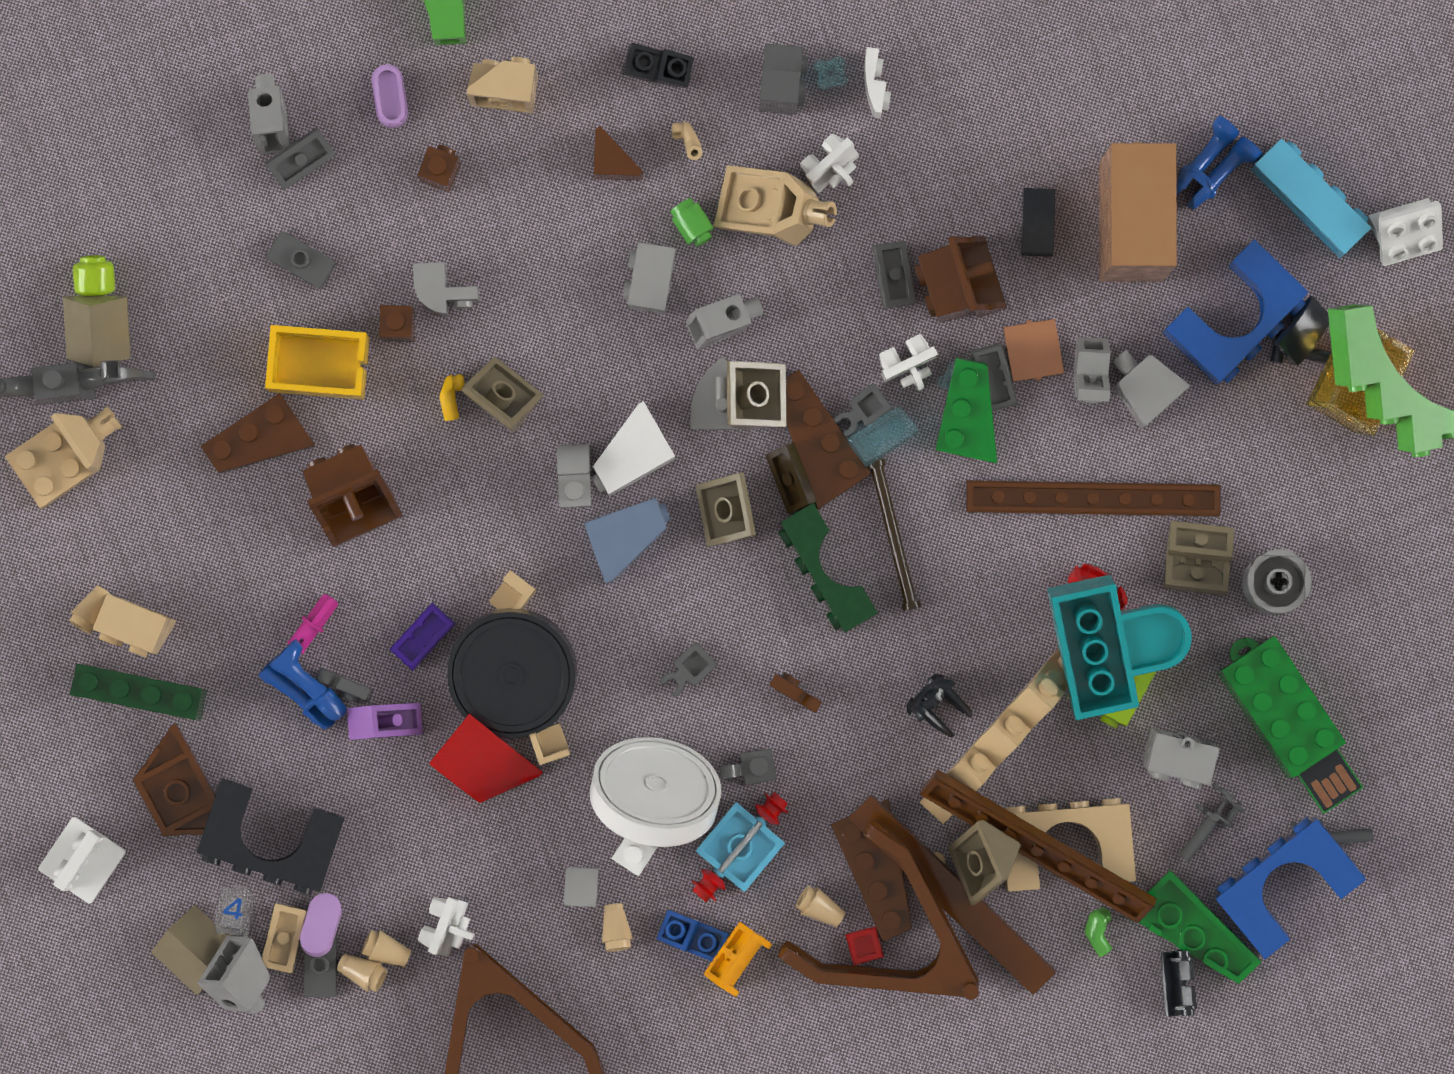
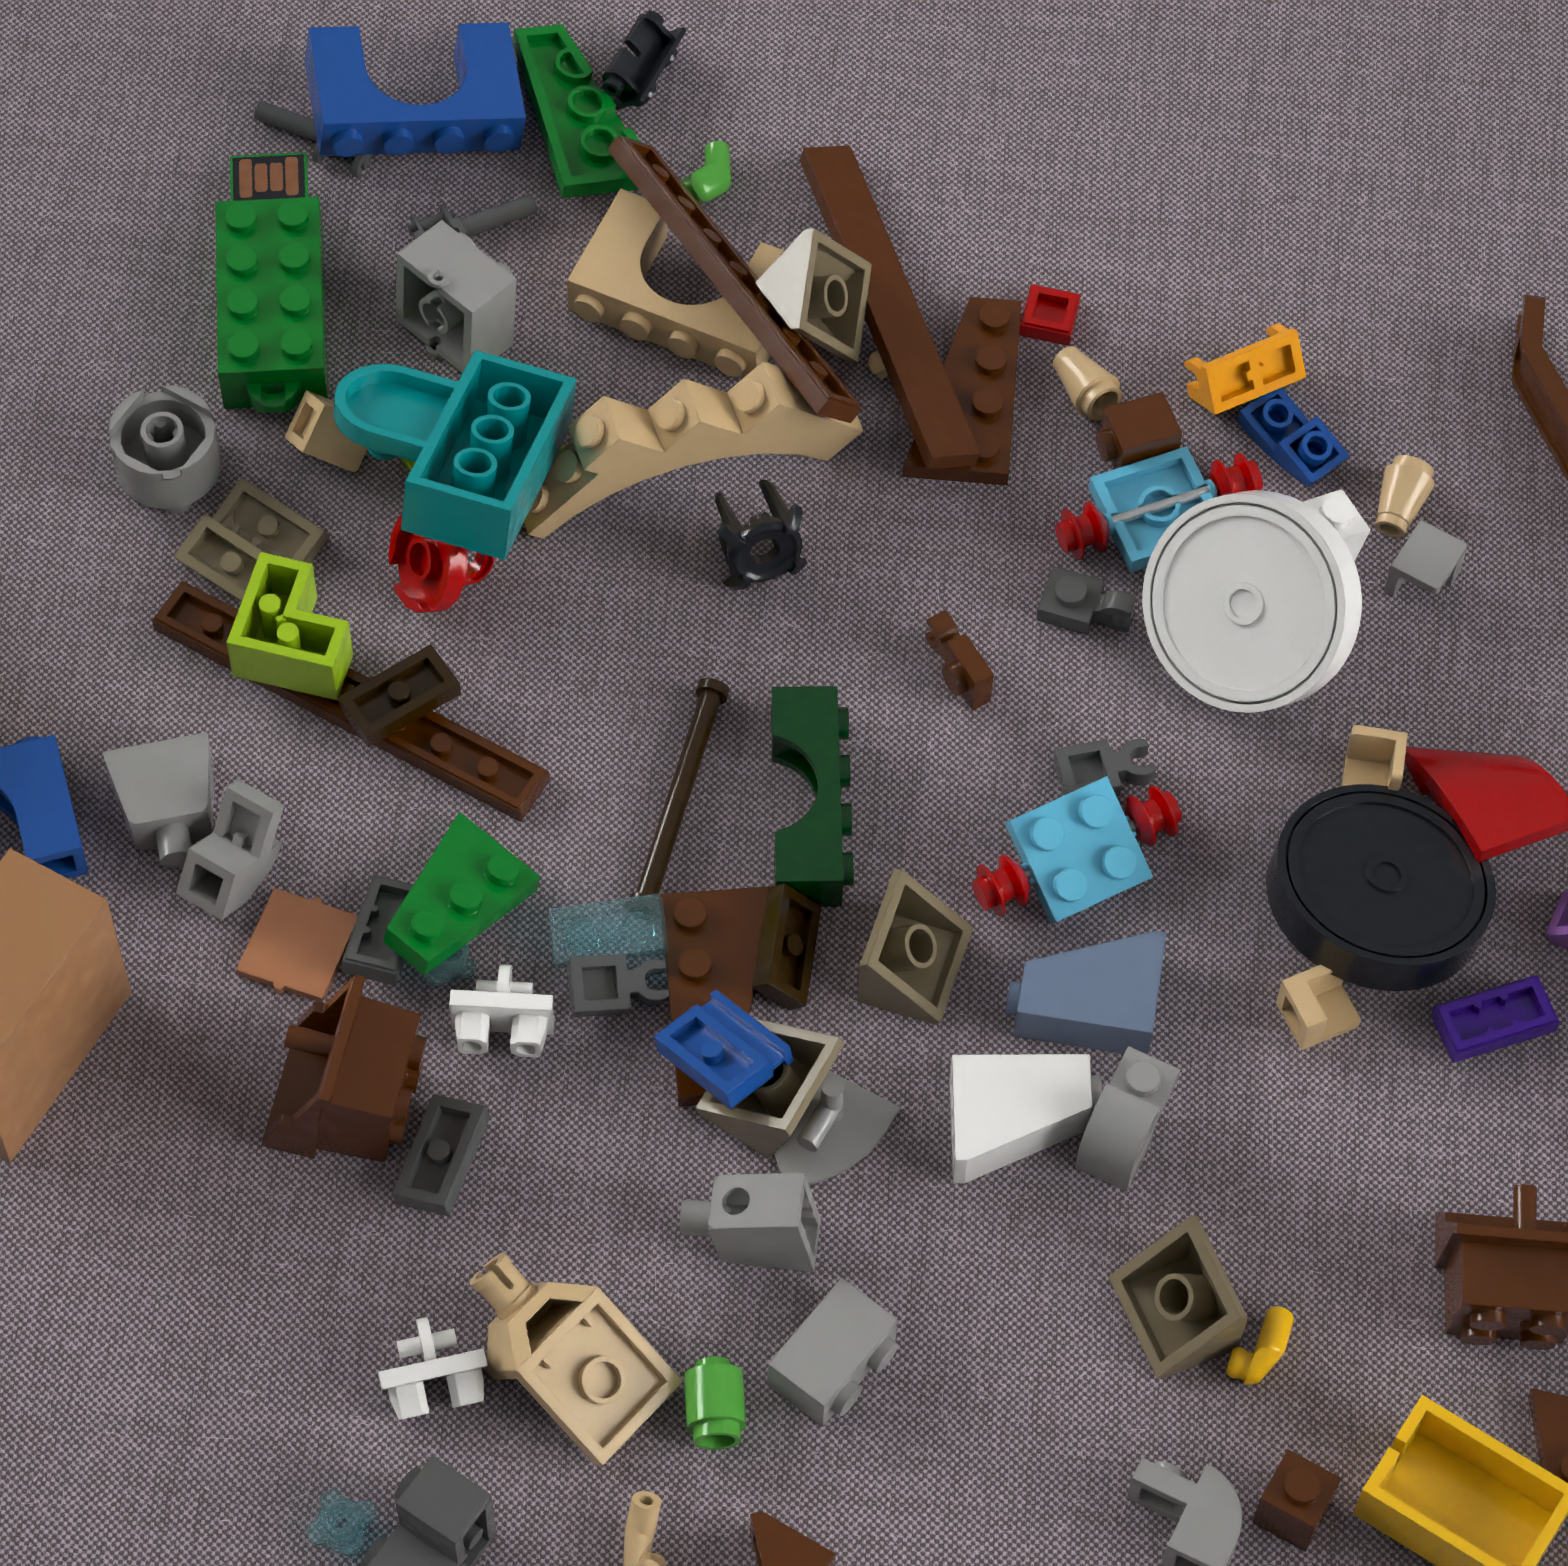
camera: 150 degrees left, 25 degrees down
(675, 613) = (1078, 850): none -> medium azure plate
(774, 885) = (1138, 430): none -> reddish brown brick
(786, 393) = (723, 1049): none -> blue plate
(875, 90) = (287, 1449): white slope -> none
(945, 975) = (966, 212): reddish brown piece -> none
(1038, 222) = (164, 1115): black slope -> none
(1064, 504) = (399, 695): none -> dark brown plate
(1146, 496) = (281, 639): none -> lime brick
(1205, 649) = (317, 434): none -> tan panel

